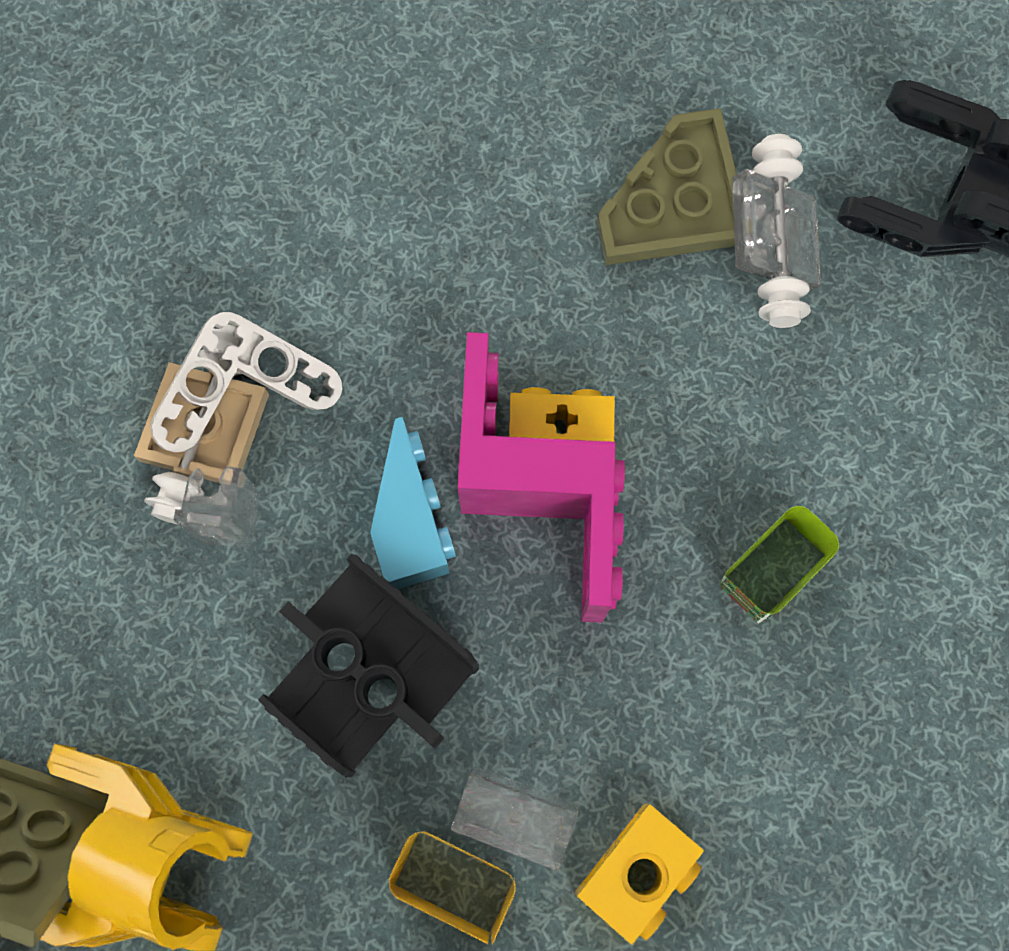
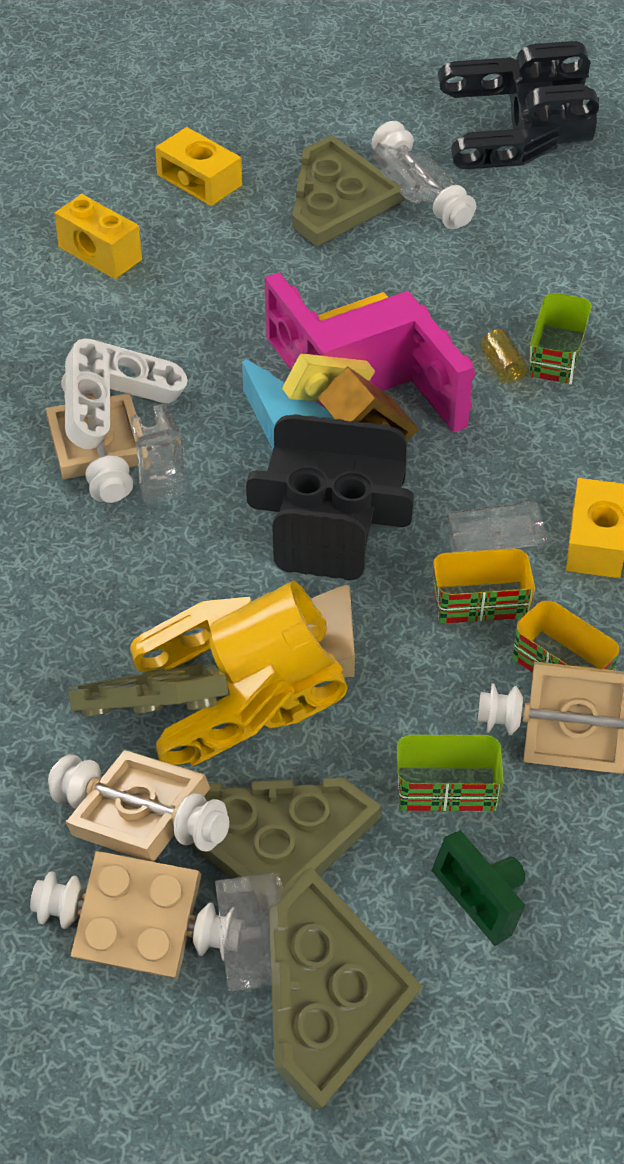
camera: 30 degrees left, 25 degrees down
(276, 825) = (339, 639): none -> tan slope
(370, 137) = (98, 236): none -> yellow brick
(441, 506) = (314, 374): none -> light yellow hinge
(476, 573) = (357, 399): none -> pearl gold brick
(541, 58) = (199, 166): none -> yellow brick
(702, 549) = (503, 356): none -> clear yellow piece

